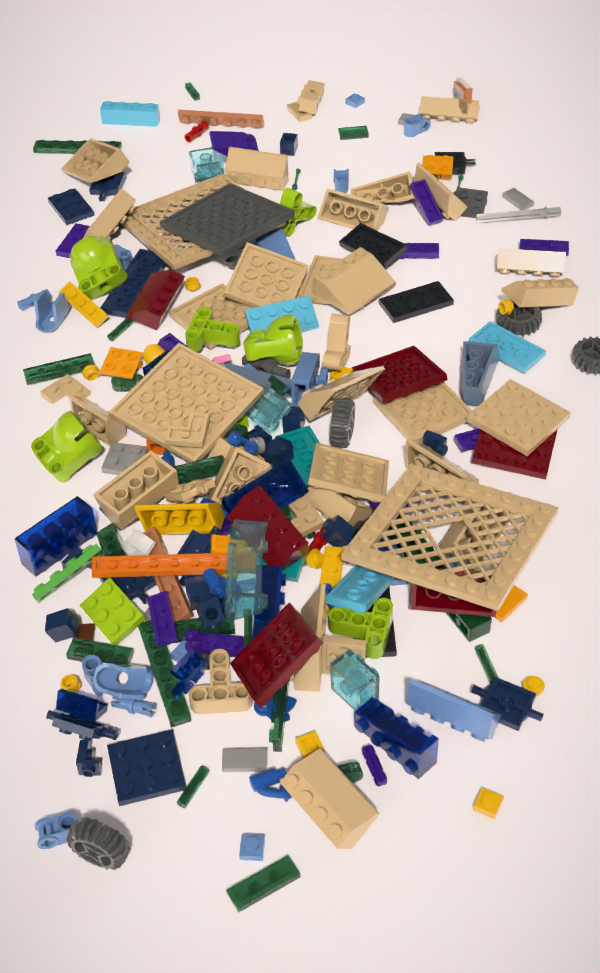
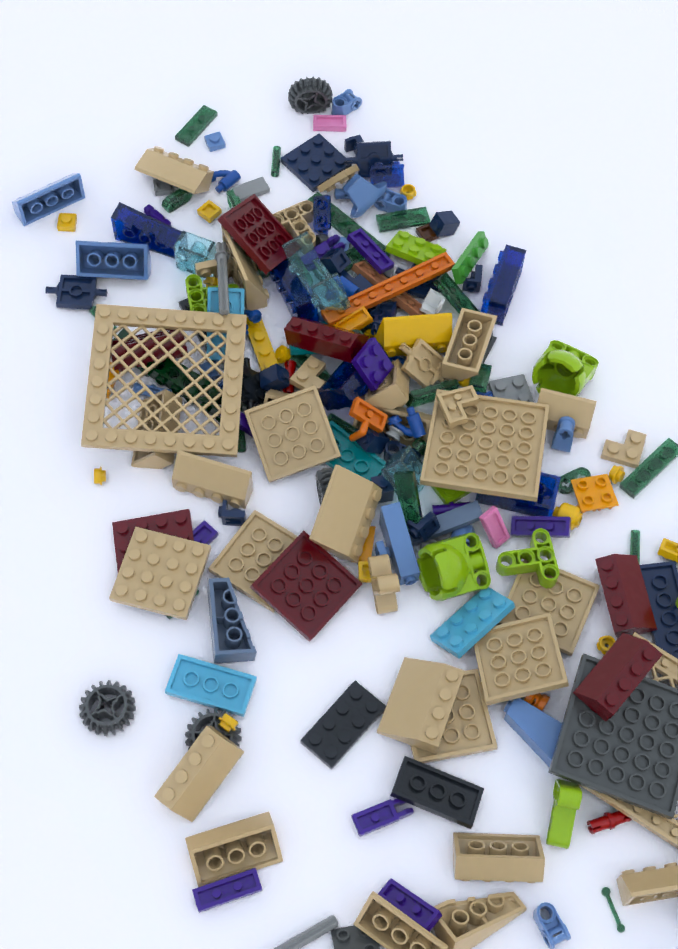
camera: 150 degrees right, 15 degrees up
(85, 808) = (329, 123): none -> bright pink tile
(109, 398) = (564, 434): none -> medium blue piece
(135, 711) = (341, 177): none -> tan plate
(210, 229) = (617, 675): none -> dark red slope
(248, 476) = (372, 364): none -> dark purple plate
(279, 449) = (368, 416): none -> orange plate
(280, 371) = (424, 528): none -> dark blue bracket
(333, 634) = (222, 257): none -> light grey axle
(503, 830) = (49, 199): none -> medium blue slope
(534, 684) = (61, 315): yellow plate -> none

